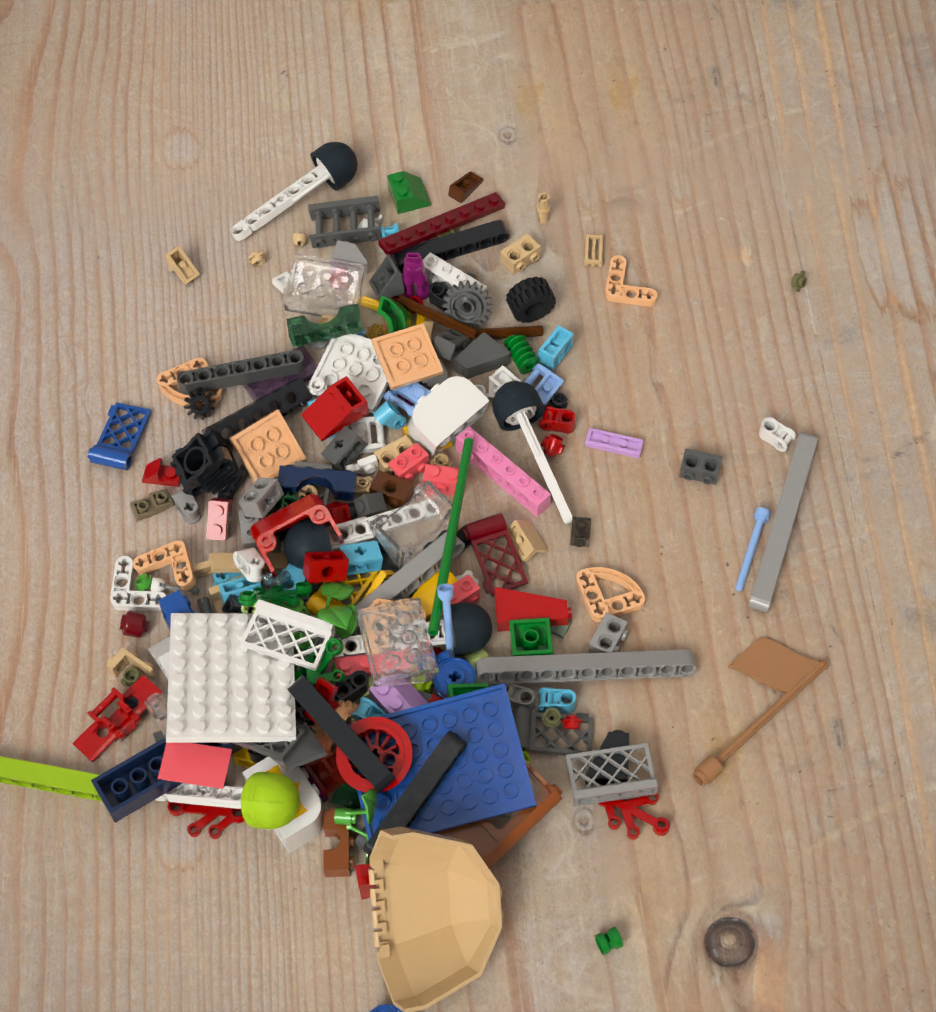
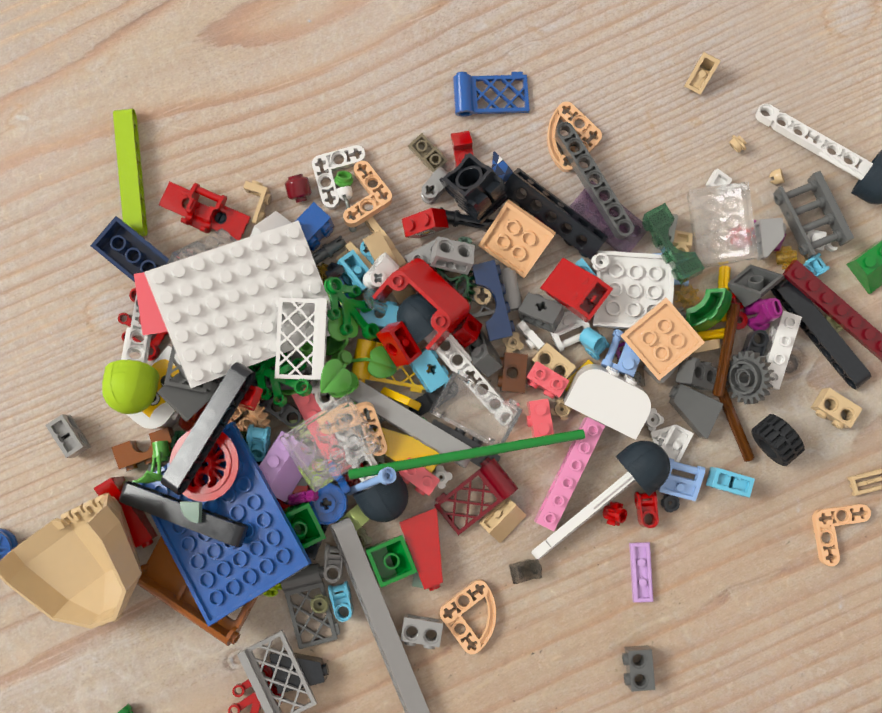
camera: 65 degrees right, 25 degrees up
(128, 673) = (248, 202): olive plate -> none
(193, 400) = (547, 154): black gear -> none
(294, 912) = (68, 436): none -> light grey brick
(373, 251) = (785, 256): none -> clear yellow gear
(415, 775) = (192, 511): none -> tile
(441, 687) = (302, 497): none -> magenta axle
(521, 353) = (712, 448): green piece -> none
(572, 722) = (320, 624): red plate -> none

